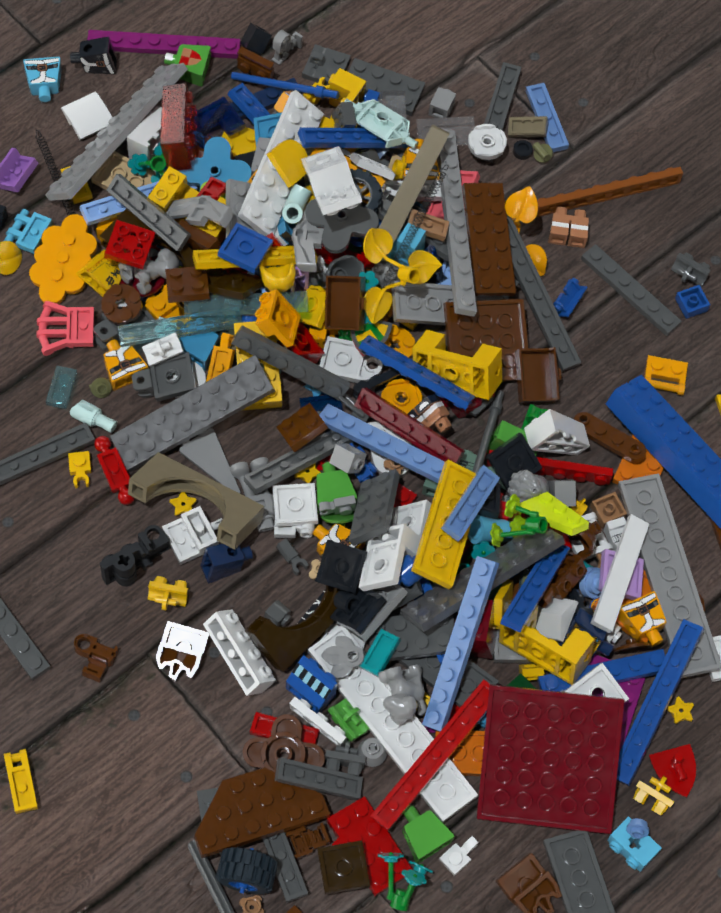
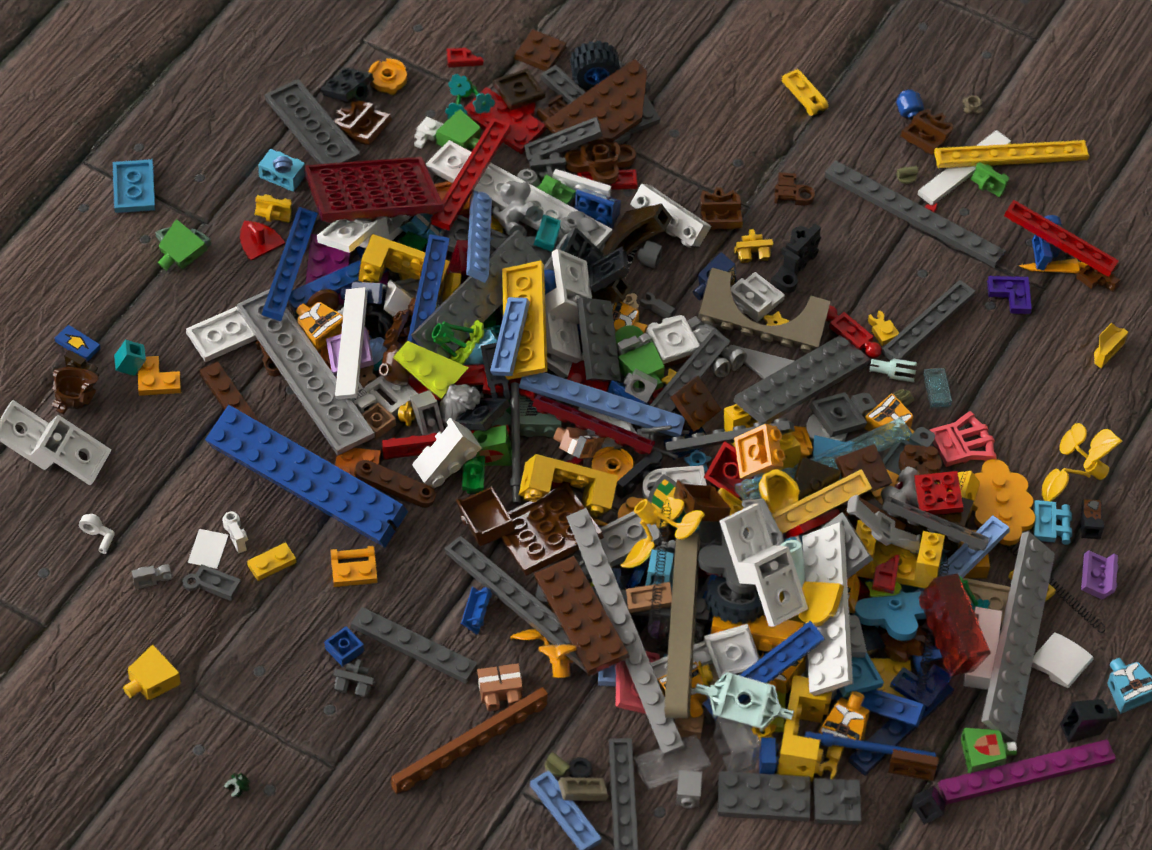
camera: 165 degrees right, 10 degrees down
(163, 349) = (857, 425): white hips -> none
(245, 248) = (820, 495): blue plate -> none
(284, 43) = (893, 798): light grey piece -> none
(344, 115) = (785, 687): dark grey piece -> none
(419, 373) = (624, 468): blue plate -> none
(487, 134) = (622, 737): white plate -> none
(680, 716) = (264, 283): yellow plate -> none

